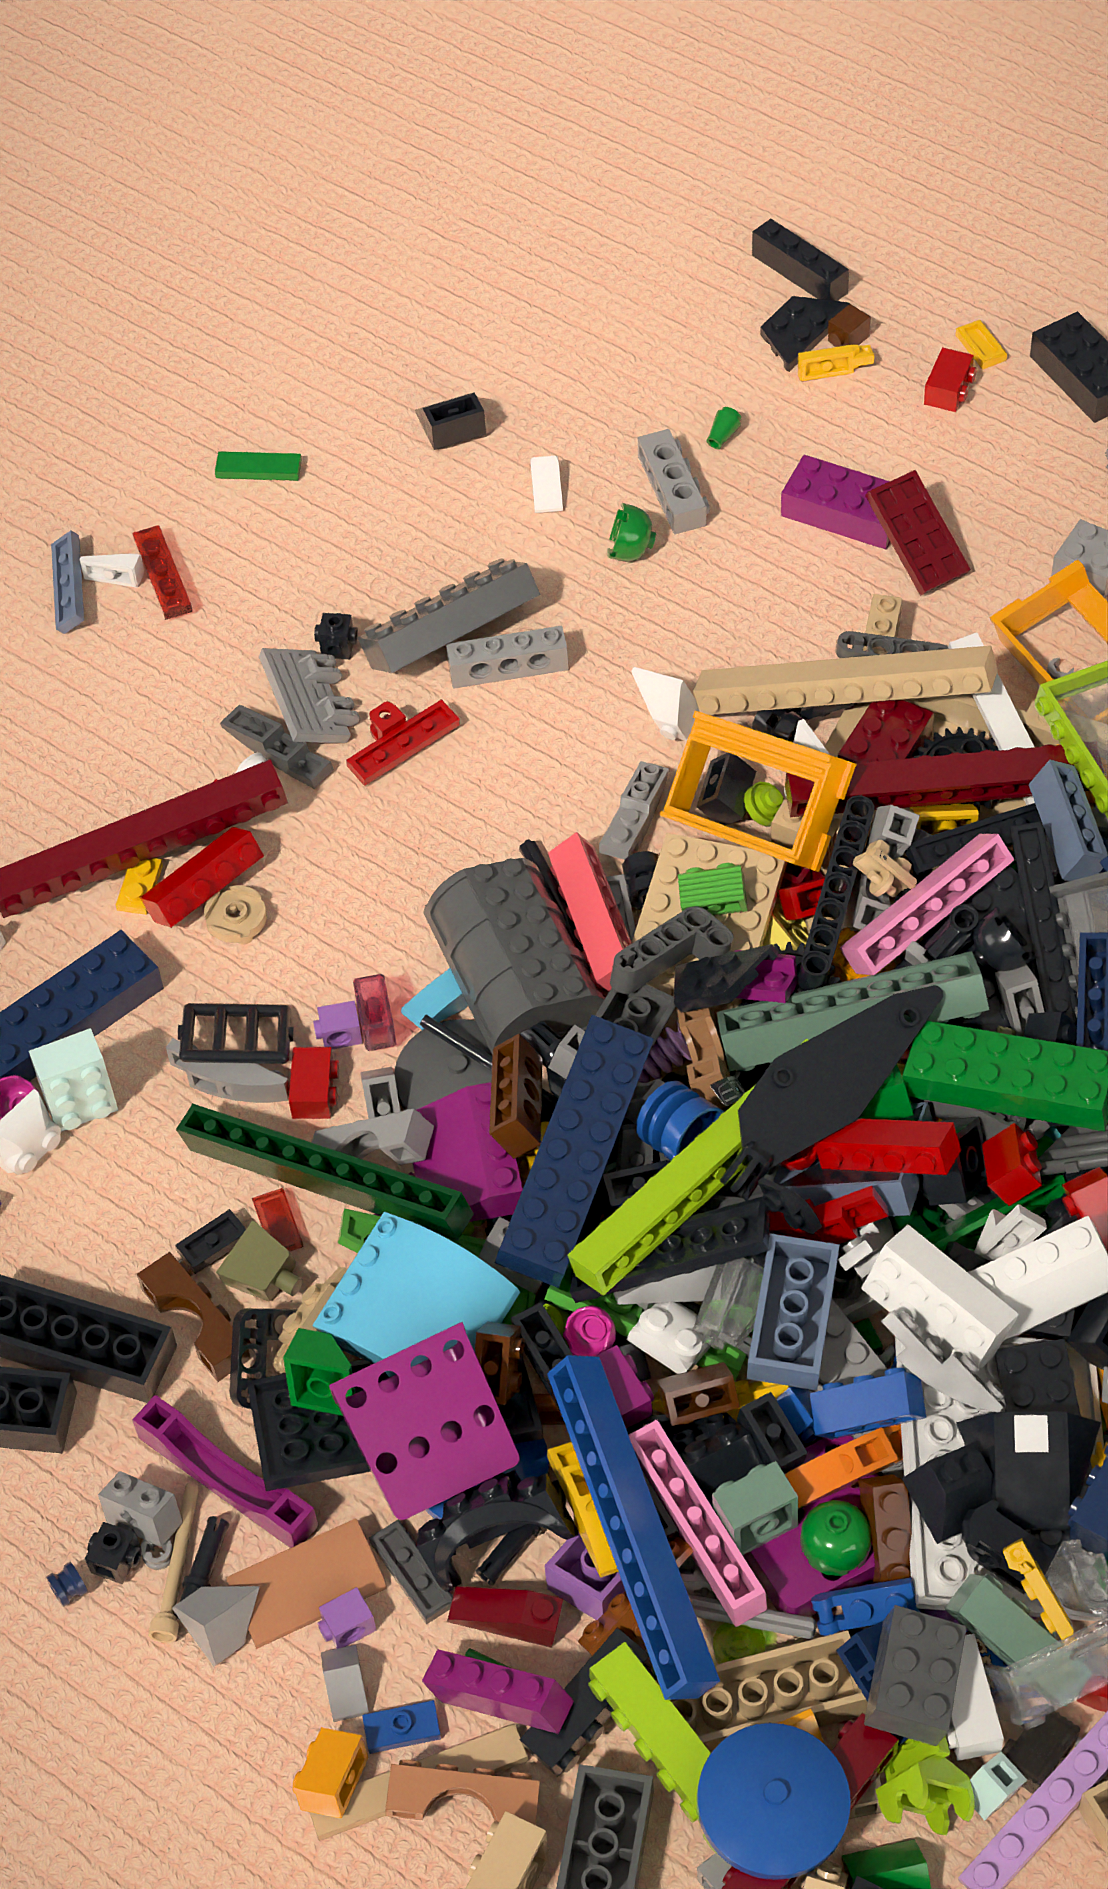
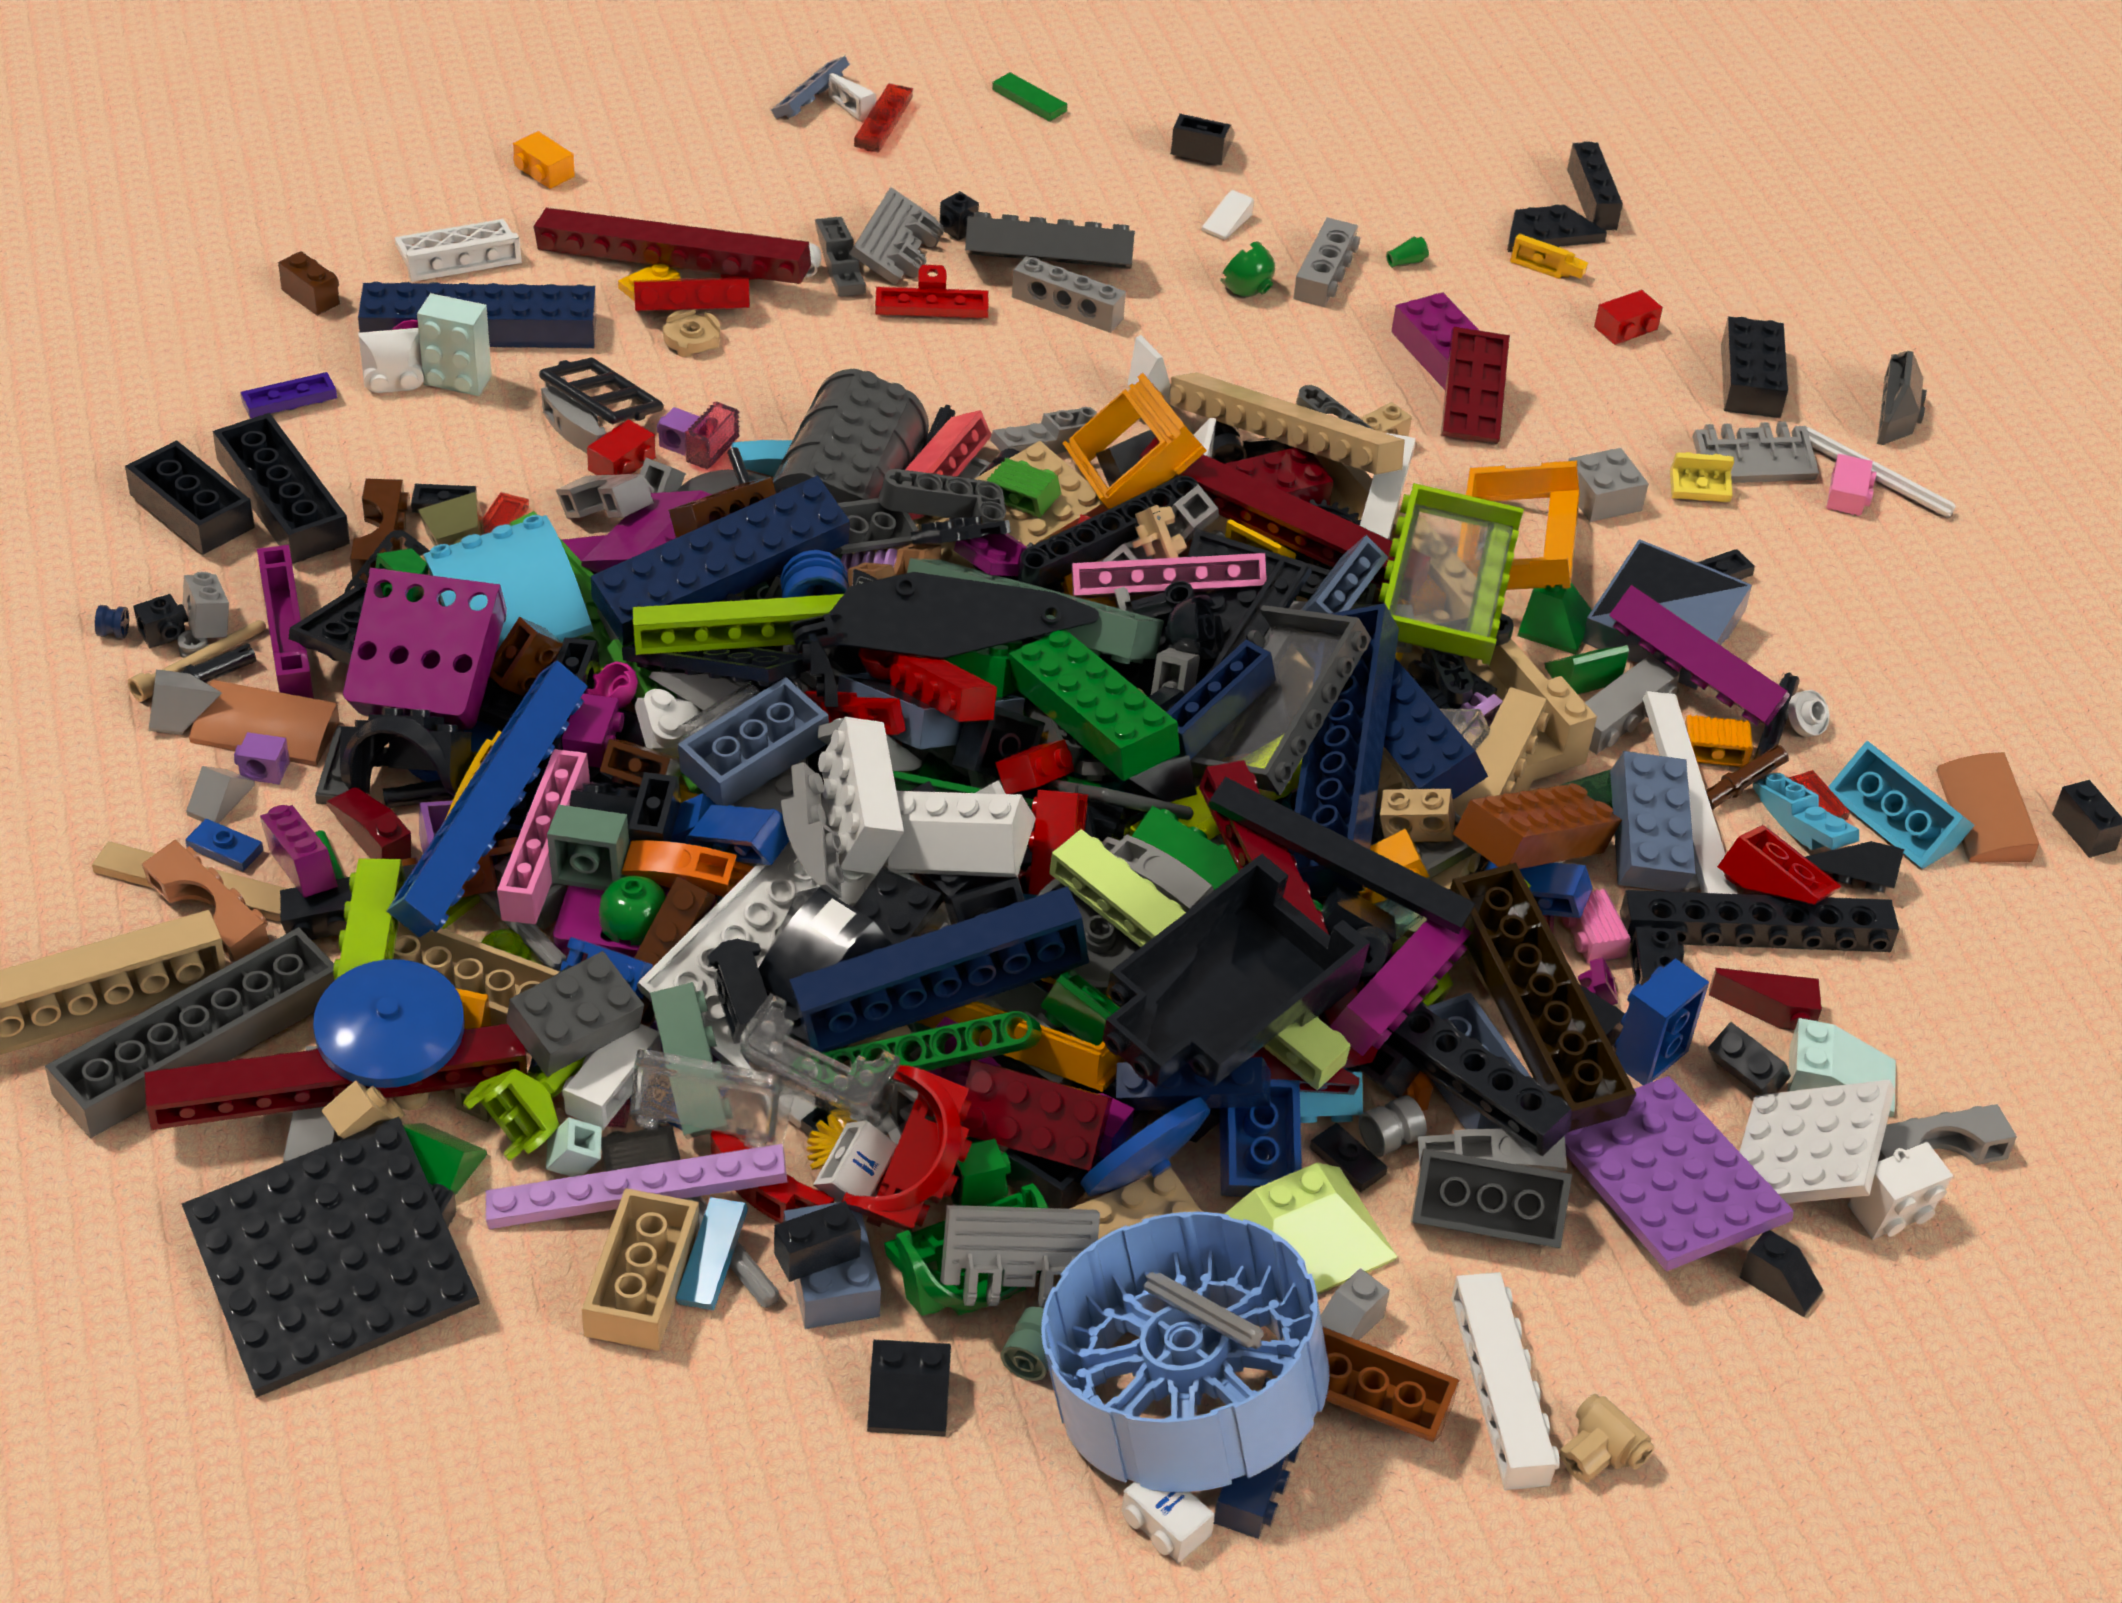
camera: 30 degrees right, 10 degrees down
(325, 1171) = (552, 489): dark green brick -> none
(330, 1772) = (139, 829): light orange brick -> none
(849, 327) = (1586, 243): reddish brown brick -> none
(949, 1488) = (736, 911): black slope -> none
(981, 344) = (1687, 313): yellow tile -> none
(1037, 1586) = (728, 1019): yellow hinge -> none

